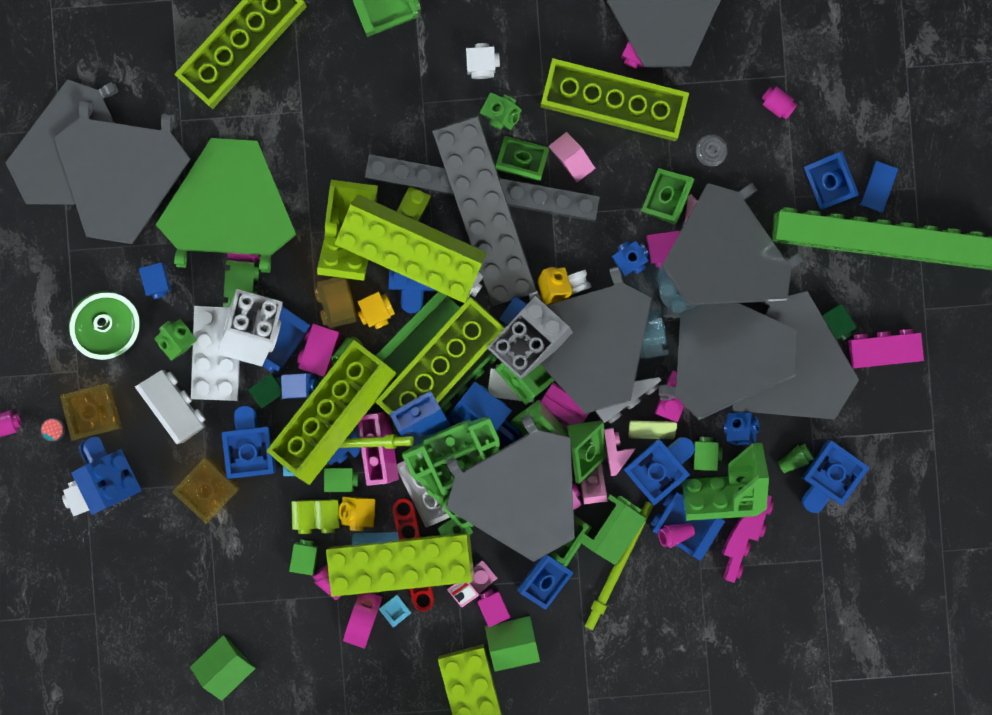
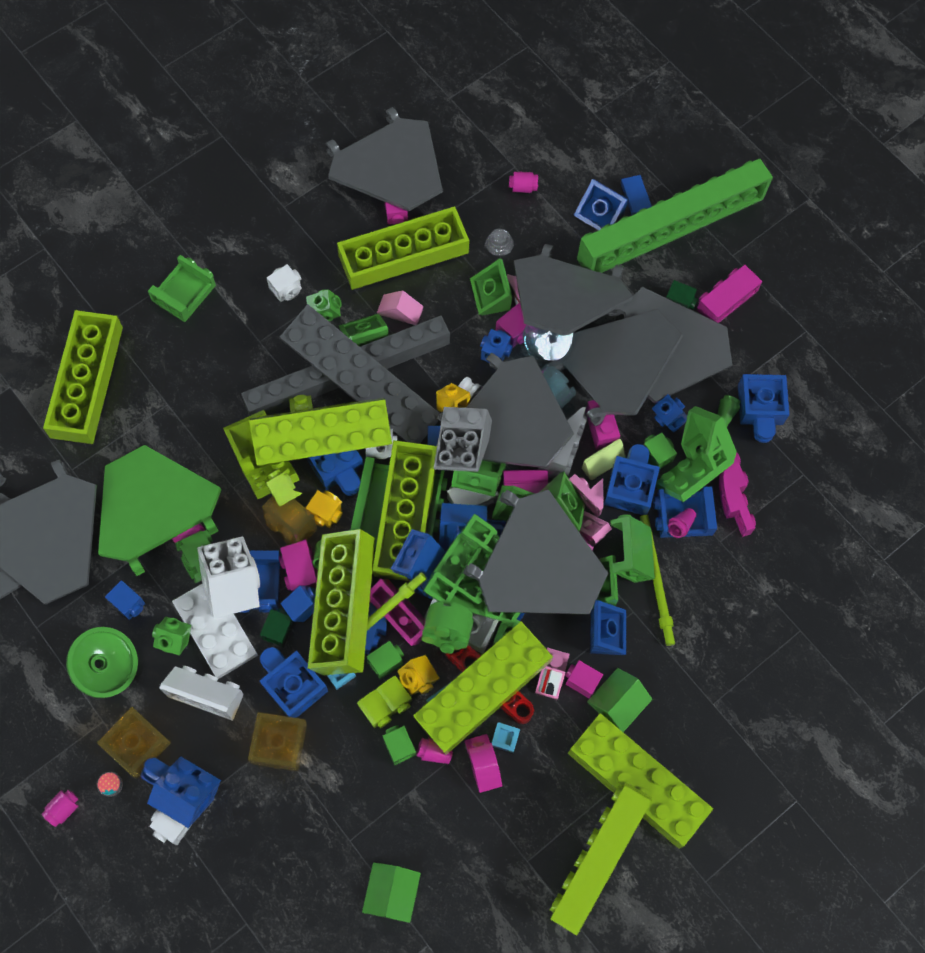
camera: 40 degrees left, 20 degrees down
(342, 282) = (281, 487): none -> lime window
(404, 495) = (448, 626): none -> bright green brick

